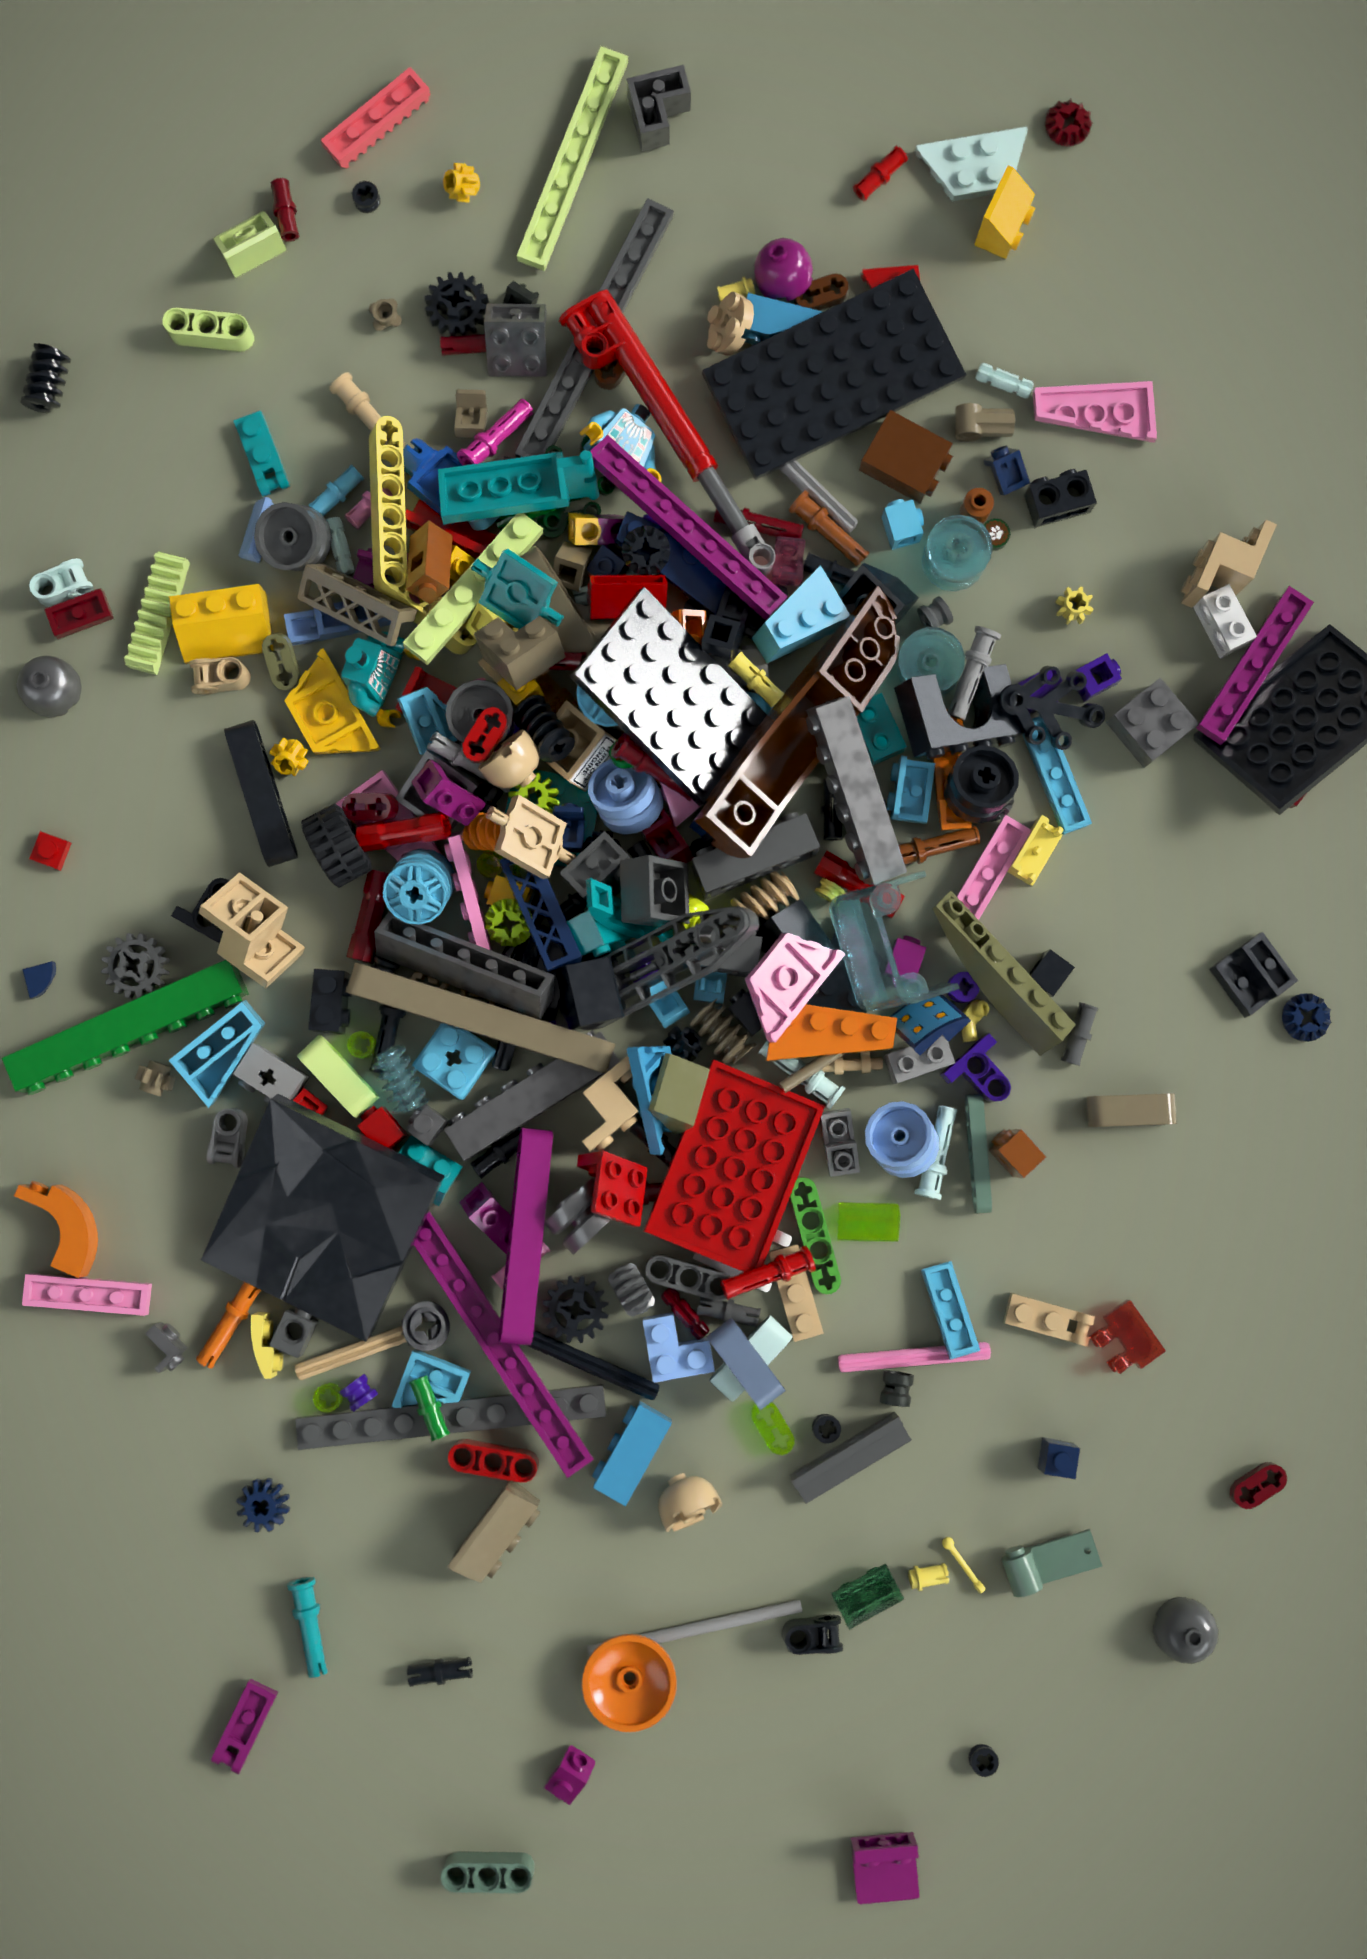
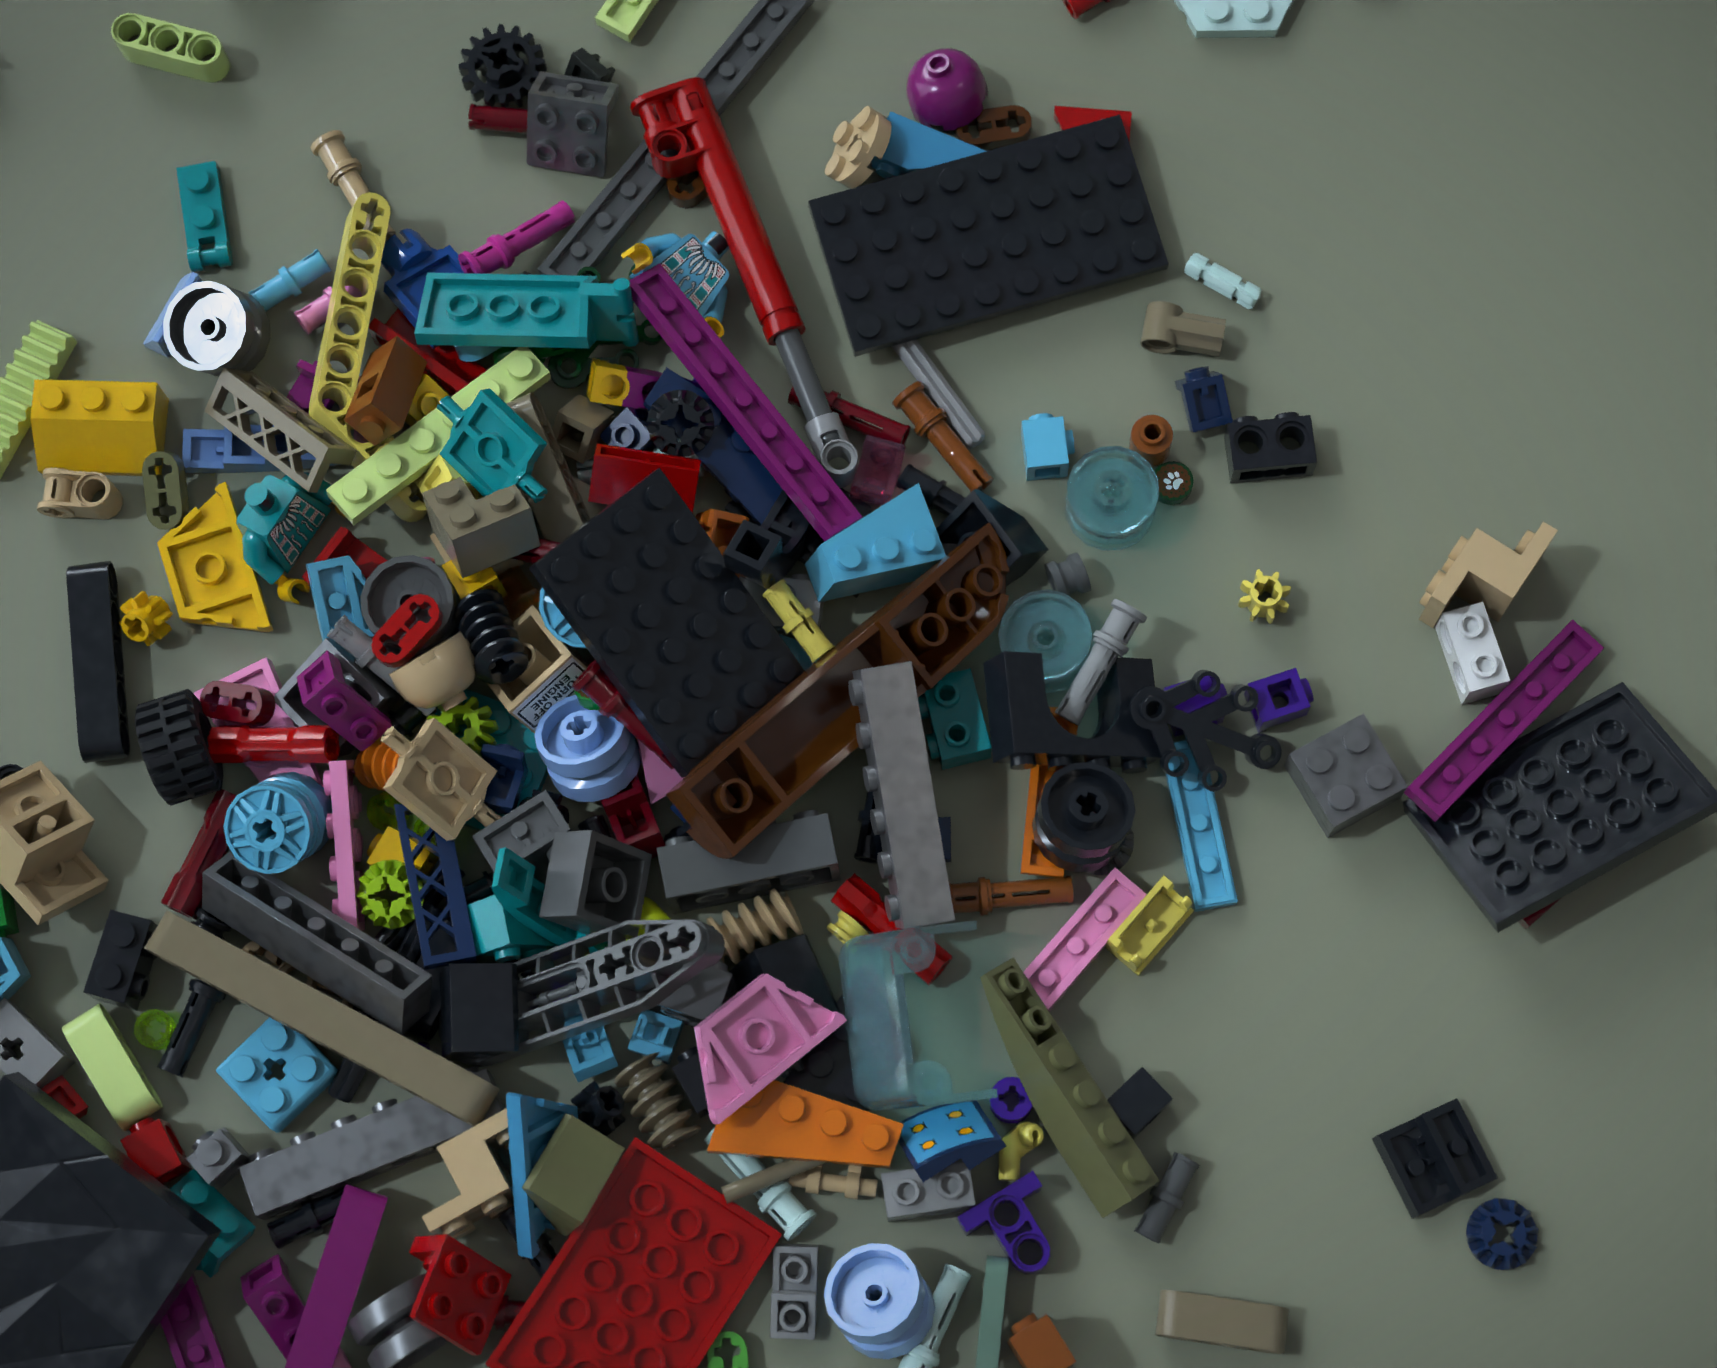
camera: 20 degrees right, 10 degrees down
(340, 546) = (279, 353): light aqua axle -> none
(385, 306) = (406, 54): dark tan plate -> none
(400, 1079) = (193, 1086): clear light blue piece -> none
(470, 412) = (491, 208): dark tan bracket -> none
(742, 287) = (882, 104): light yellow pin -> none
(906, 457) = (1067, 360): reddish brown brick -> none
(908, 954) = (938, 1039): magenta brick -> none
(911, 791) = (989, 811): medium azure bracket -> none
(1005, 215) = (1260, 65): yellow slope -> none
(1102, 408) = (1354, 339): bright pink wing -> none

